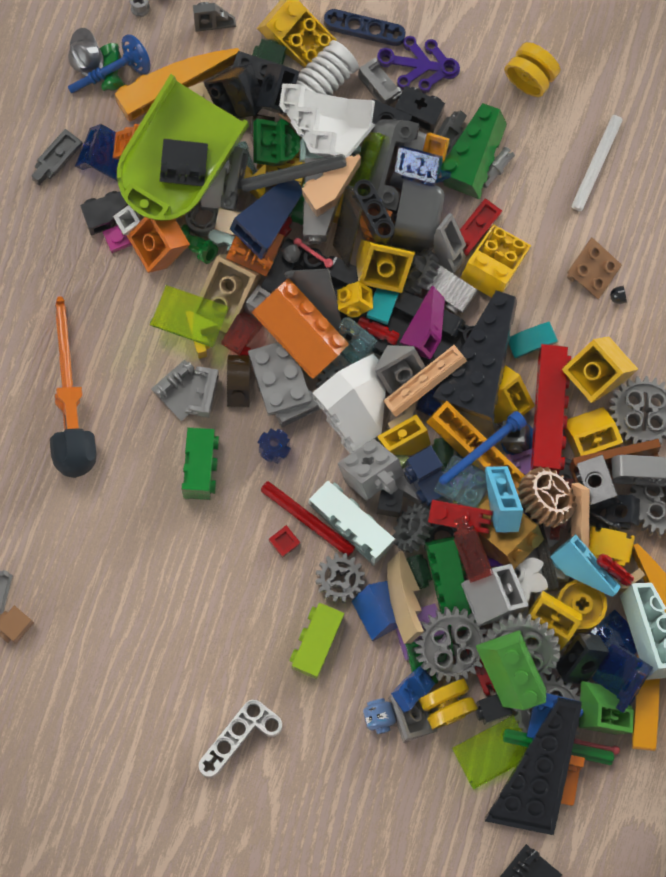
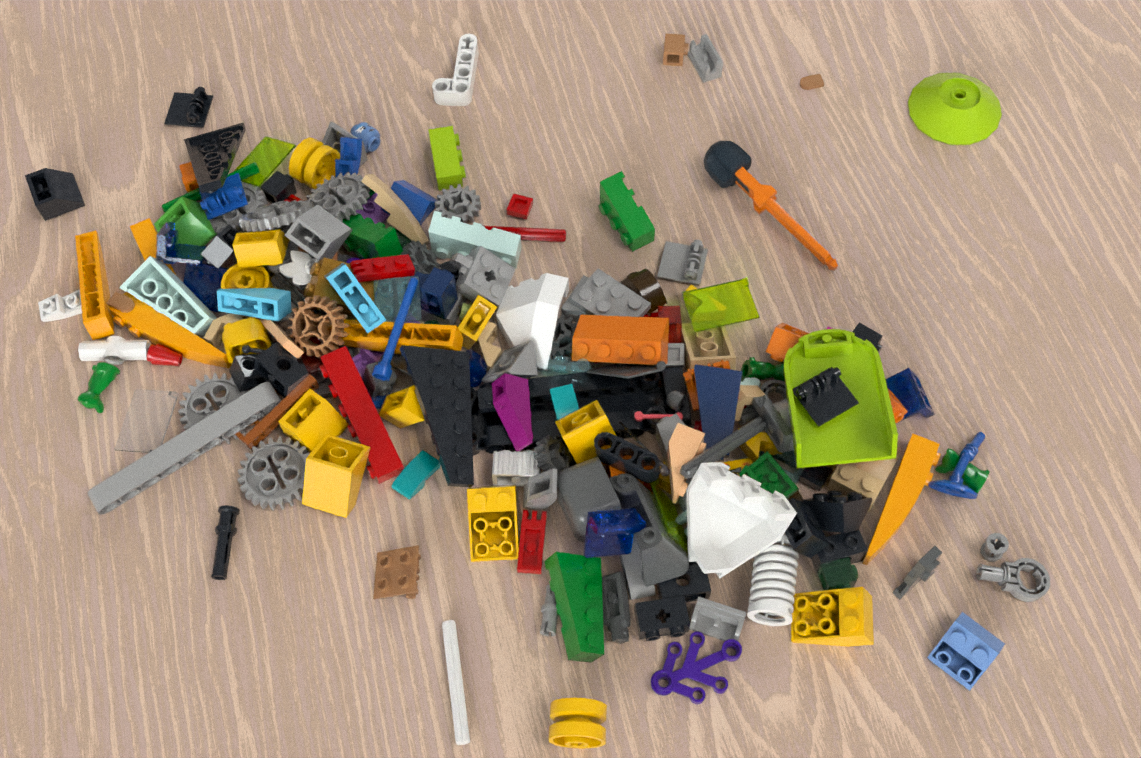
camera: 155 degrees right, 15 degrees down
(56, 156) = (939, 371): dark grey hinge -> none
(84, 52) = (999, 463): flat silver piece -> none
(202, 391) = (664, 264): light grey hinge -> none
(274, 453) = (577, 261): clear blue brick -> none
(355, 299) = (591, 387): yellow brick -> none
(365, 23) = (774, 669): dark blue beam -> none
(379, 330) = (539, 387): red axle -> none
(425, 380) = (484, 364): light nougat tile -> none
(436, 145) = (615, 568): light orange plate -> none
(471, 550) = (356, 241): clear red hinge -> none
(512, 671) = (268, 190): bright green slope -> none
(615, 569) = (229, 316): red axle -> none
(618, 295) = (357, 564): black hinge -> none

